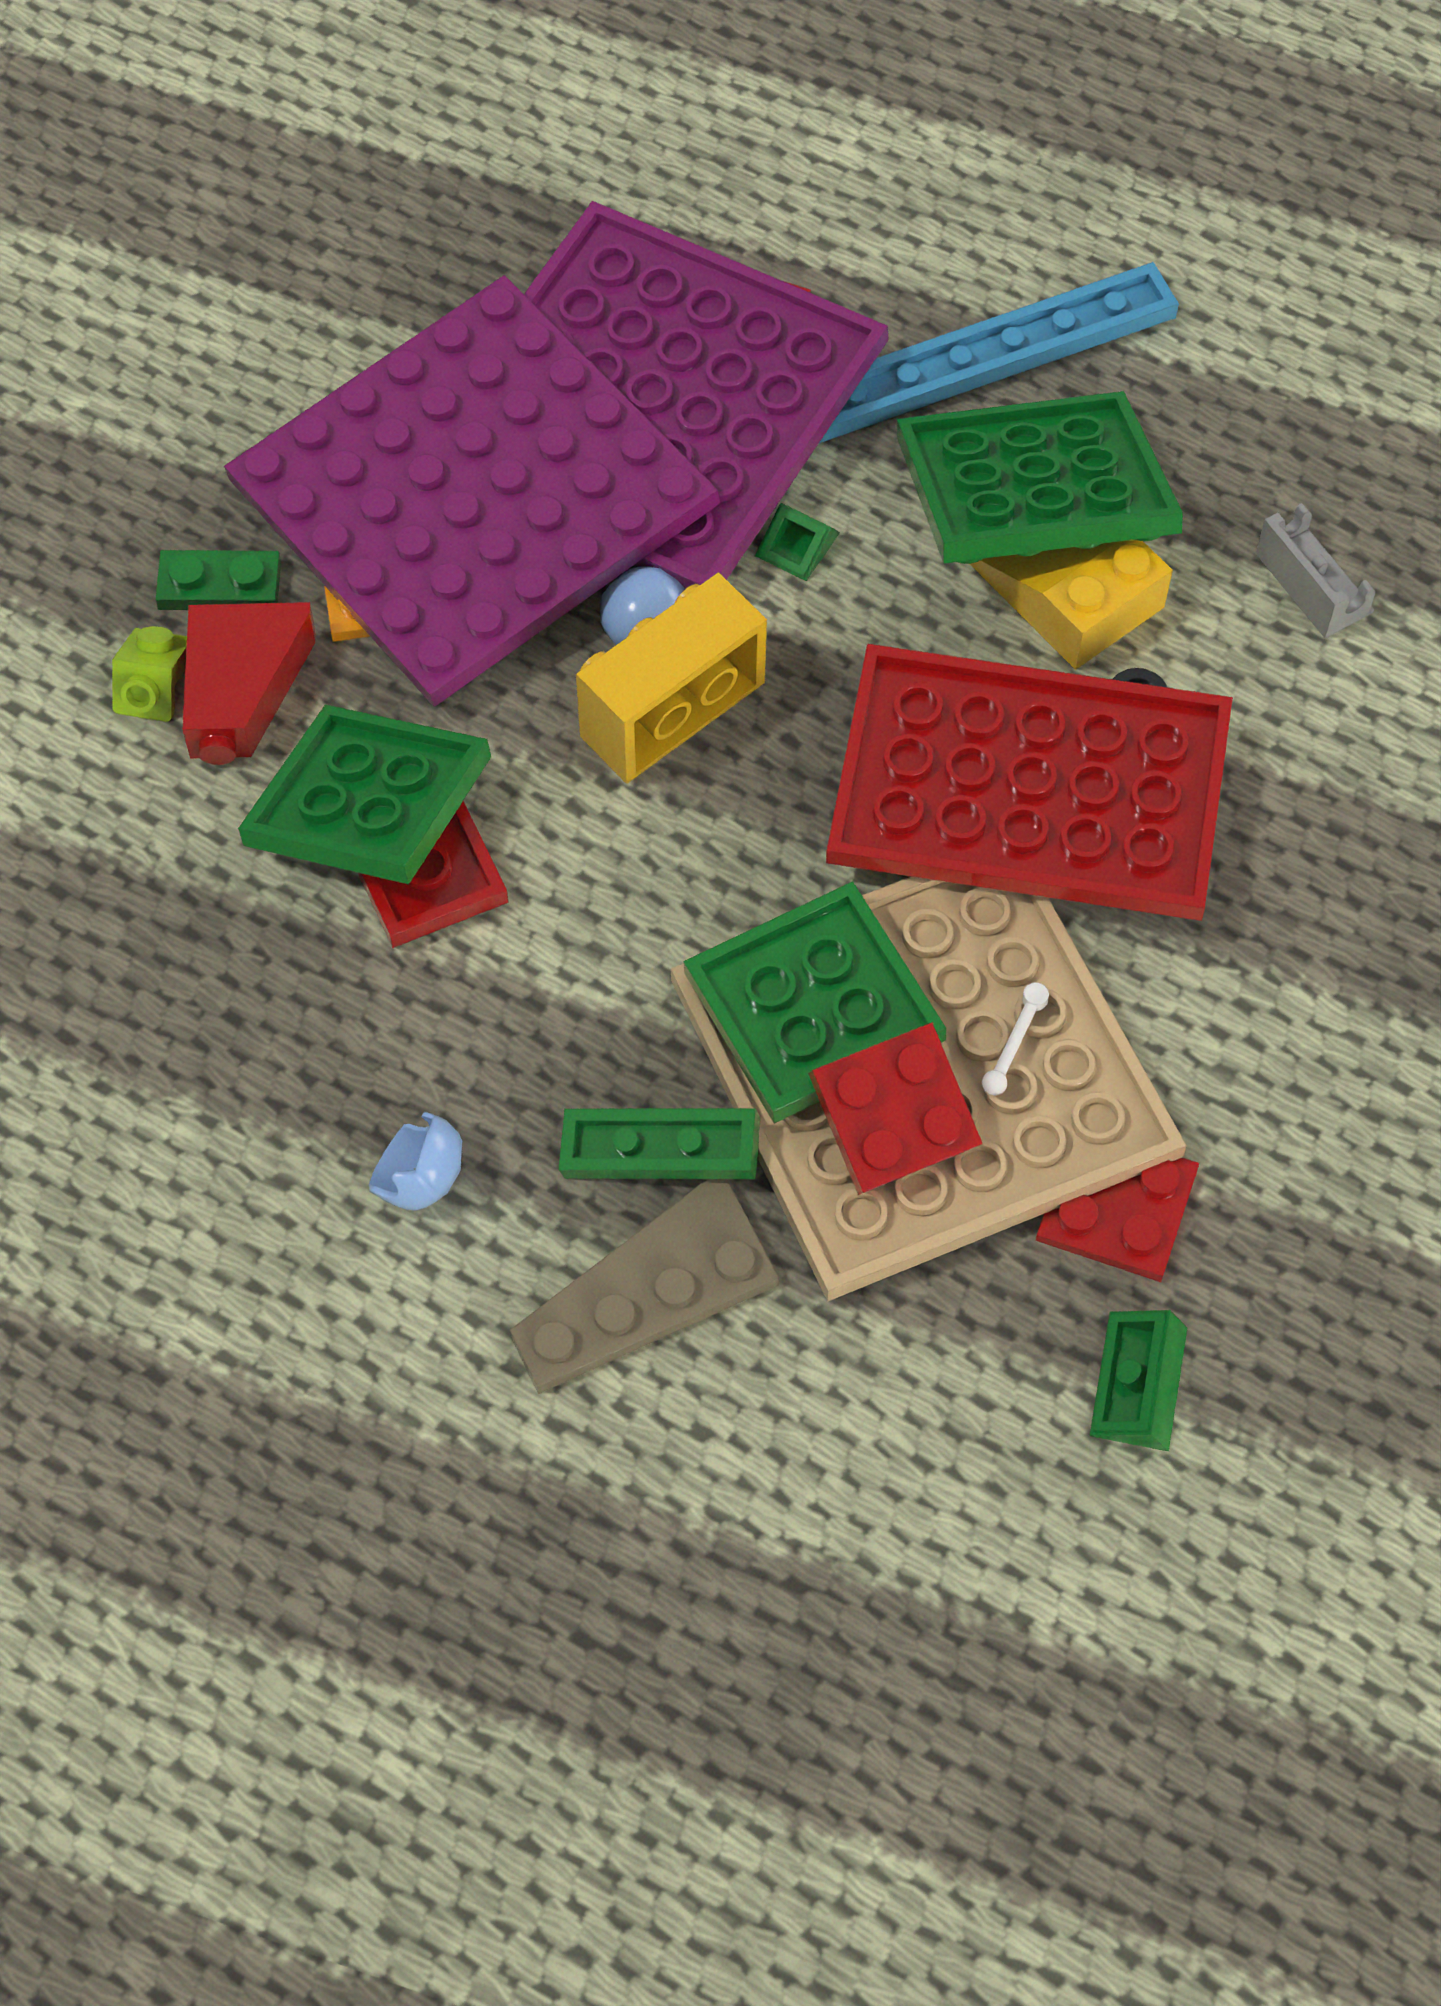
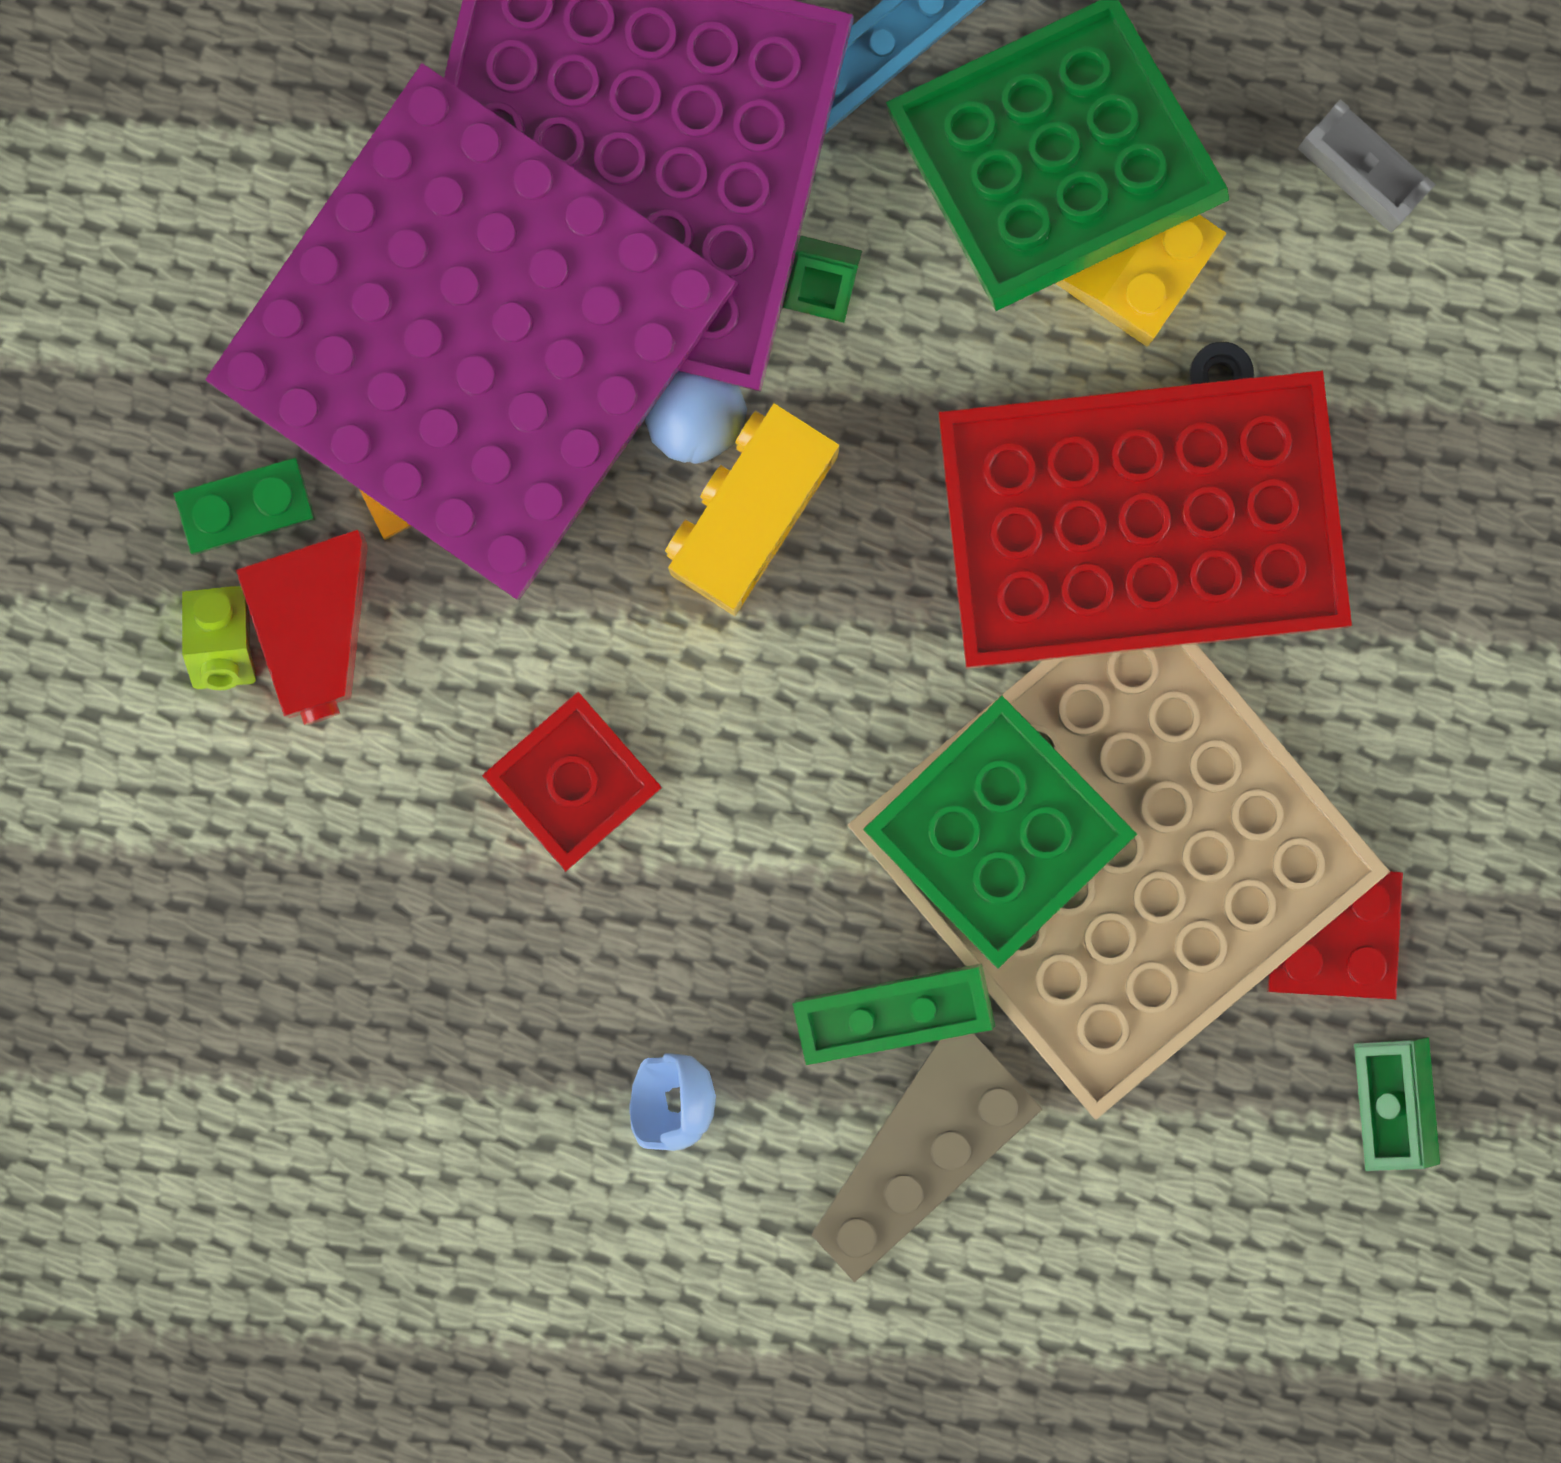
camera: 15 degrees left, 25 degrees up
(365, 793) = (490, 729): green plate -> none
(895, 1108) = (1111, 930): red plate -> none
(1034, 999) = (1208, 758): white hinge -> none

